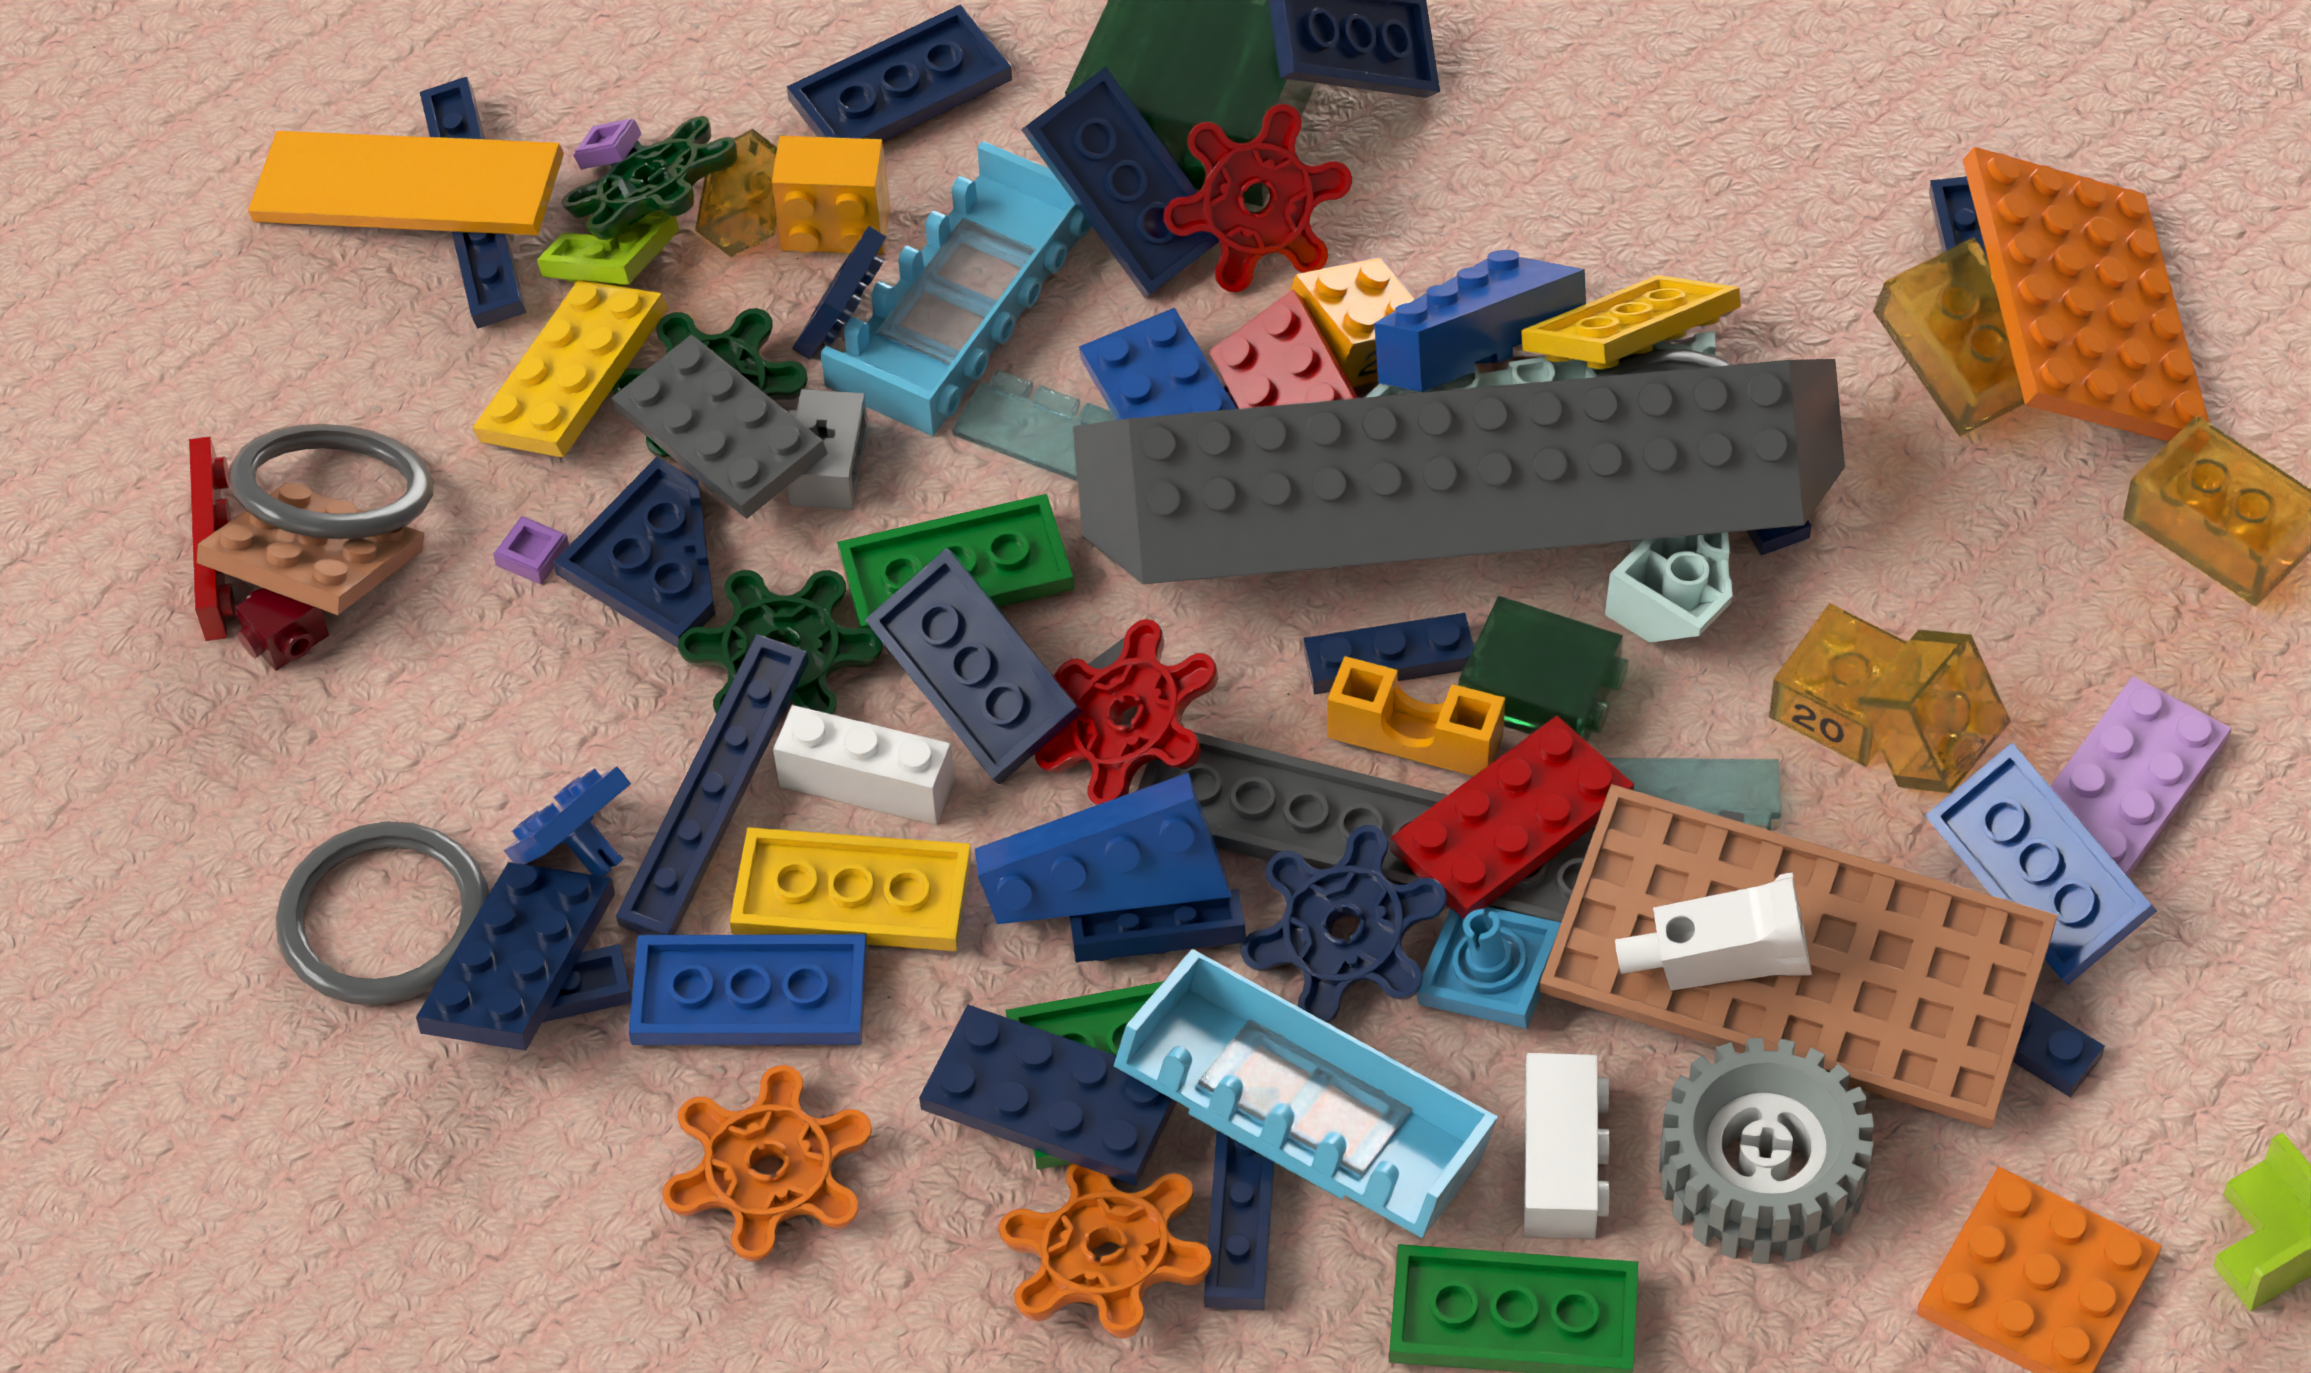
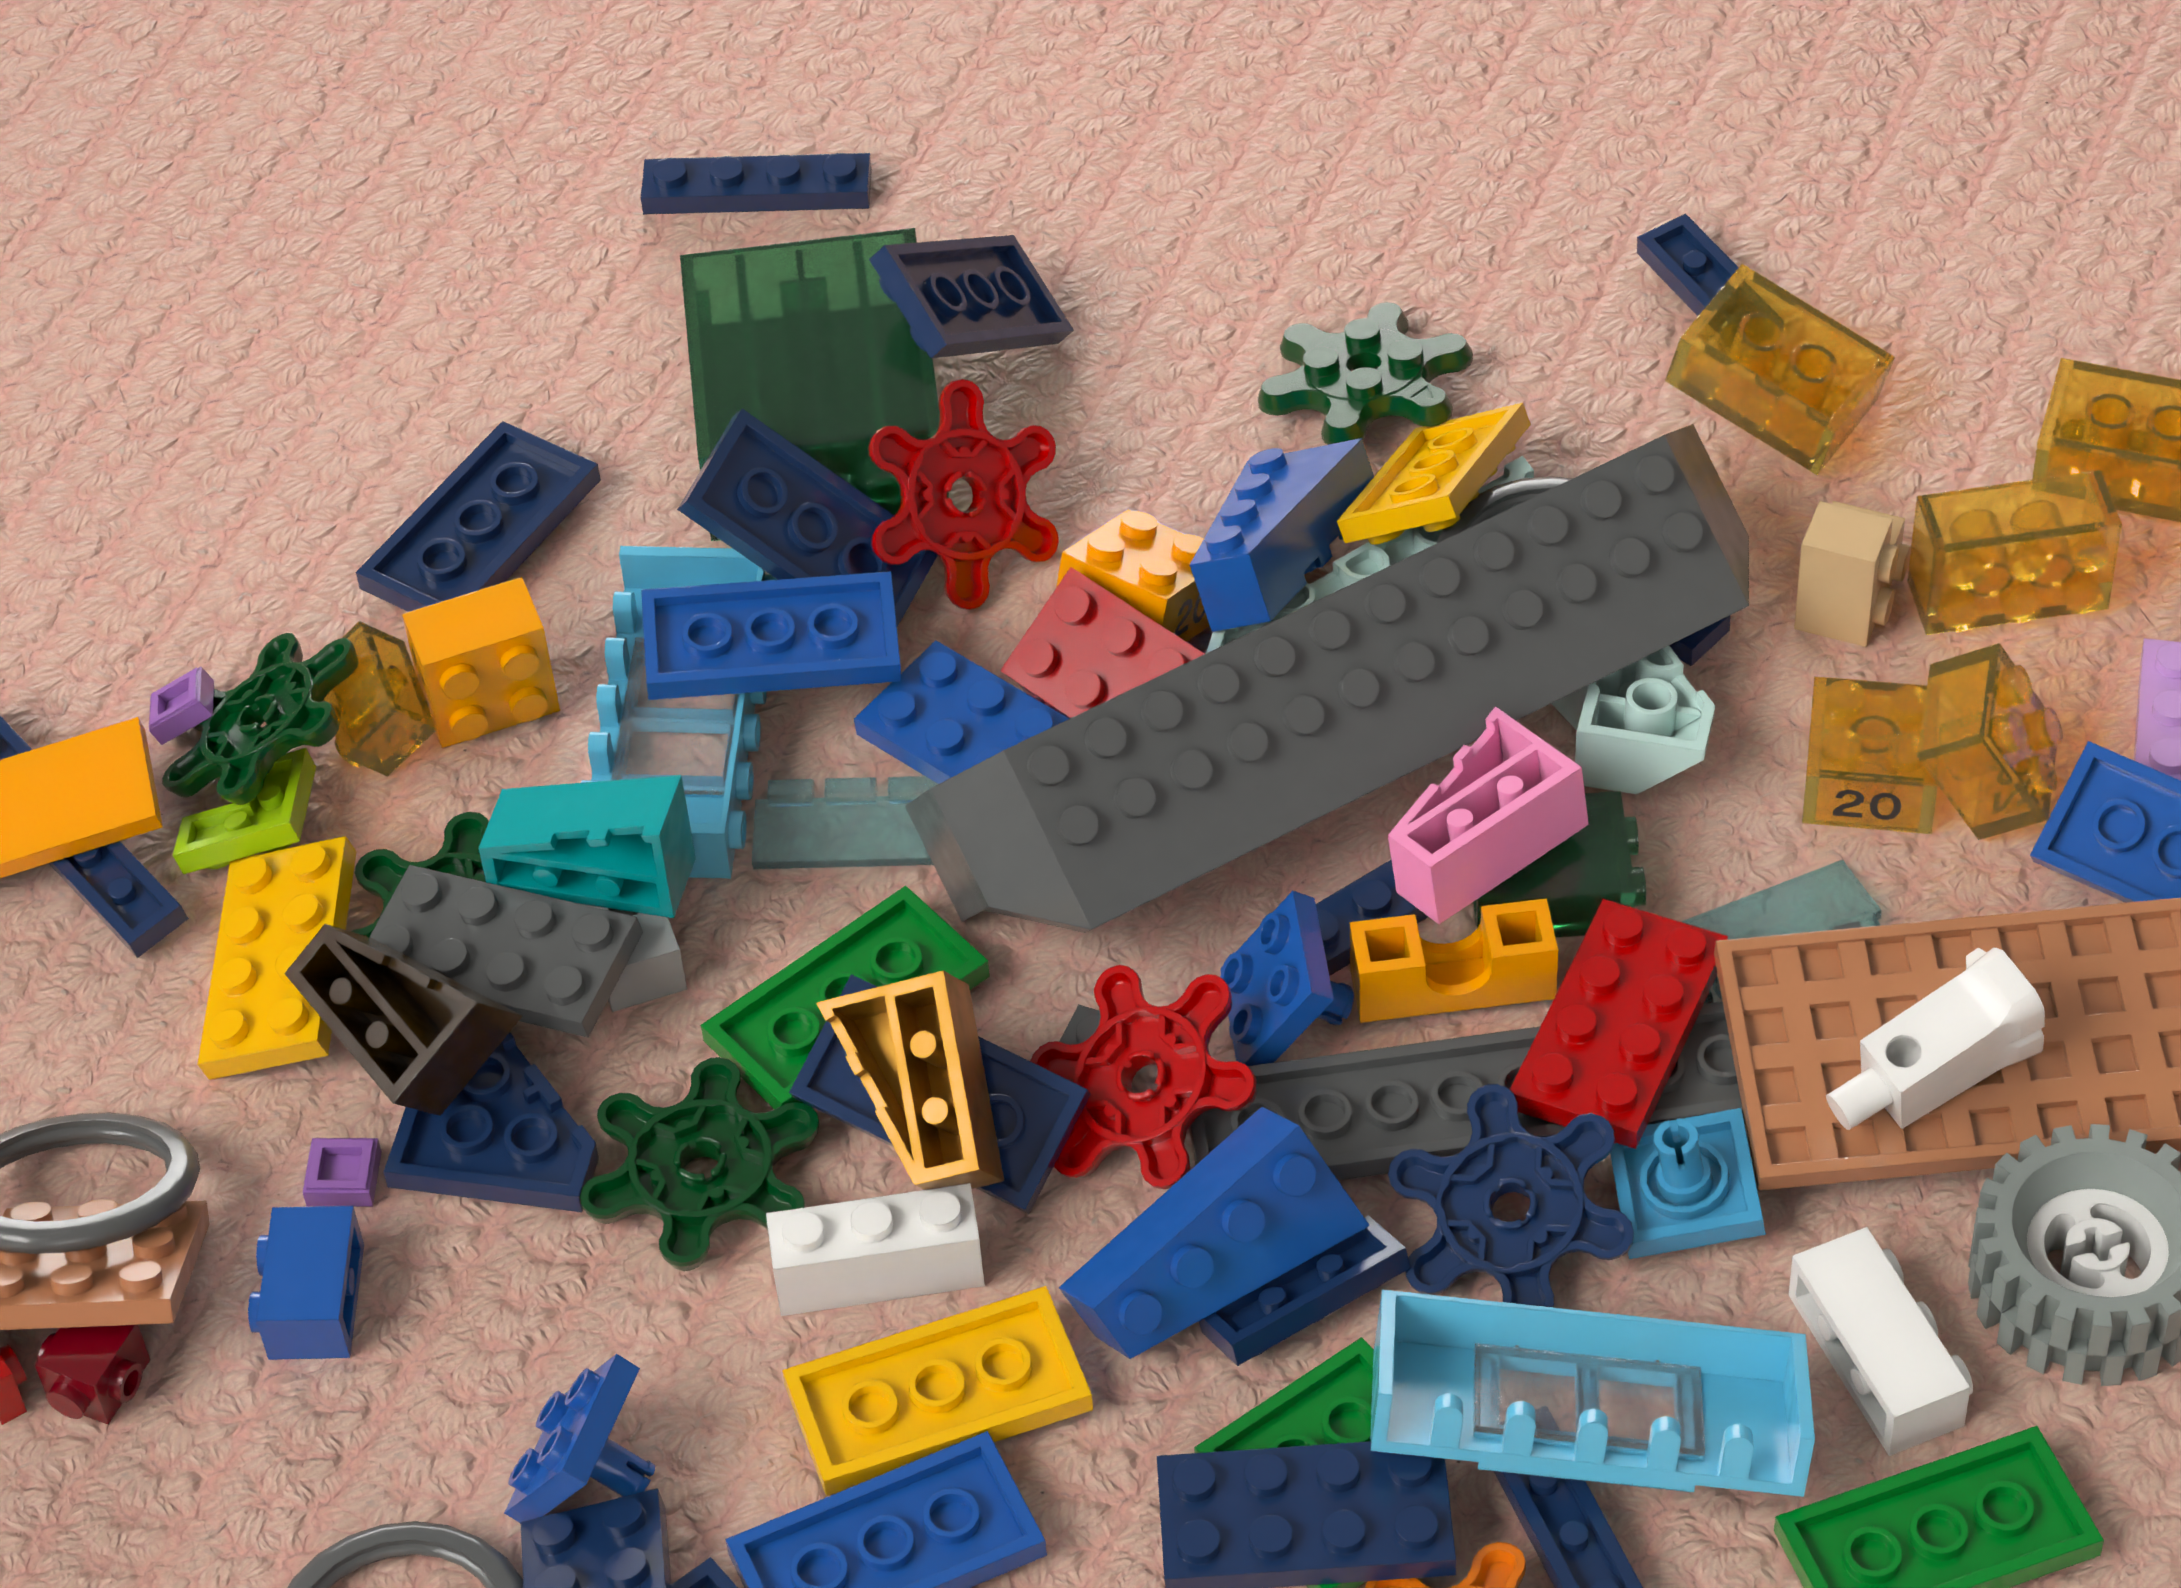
camera: 25 degrees left, 5 degrees down
(459, 623) = (308, 1282): none -> blue brick
(611, 449) = (400, 1018): none -> dark brown wedge
(712, 788) = (719, 1344): dark blue plate -> none
(821, 372) = (594, 843): none -> teal wedge
(842, 294) = (555, 743): dark blue plate -> none
(953, 649) = (925, 1075): none -> pearl gold wedge
(1046, 256) = (770, 635): none -> blue plate
(1272, 684) = (1281, 983): none -> blue plate
(1488, 618) = (1486, 819): none -> bright pink wedge
(1623, 231) = (1387, 376): none -> plate
(1922, 524) = (1848, 571): none -> tan brick
(2059, 563) = (2013, 552): none -> clear yellow brick
(2084, 297) = (1874, 288): orange plate -> none

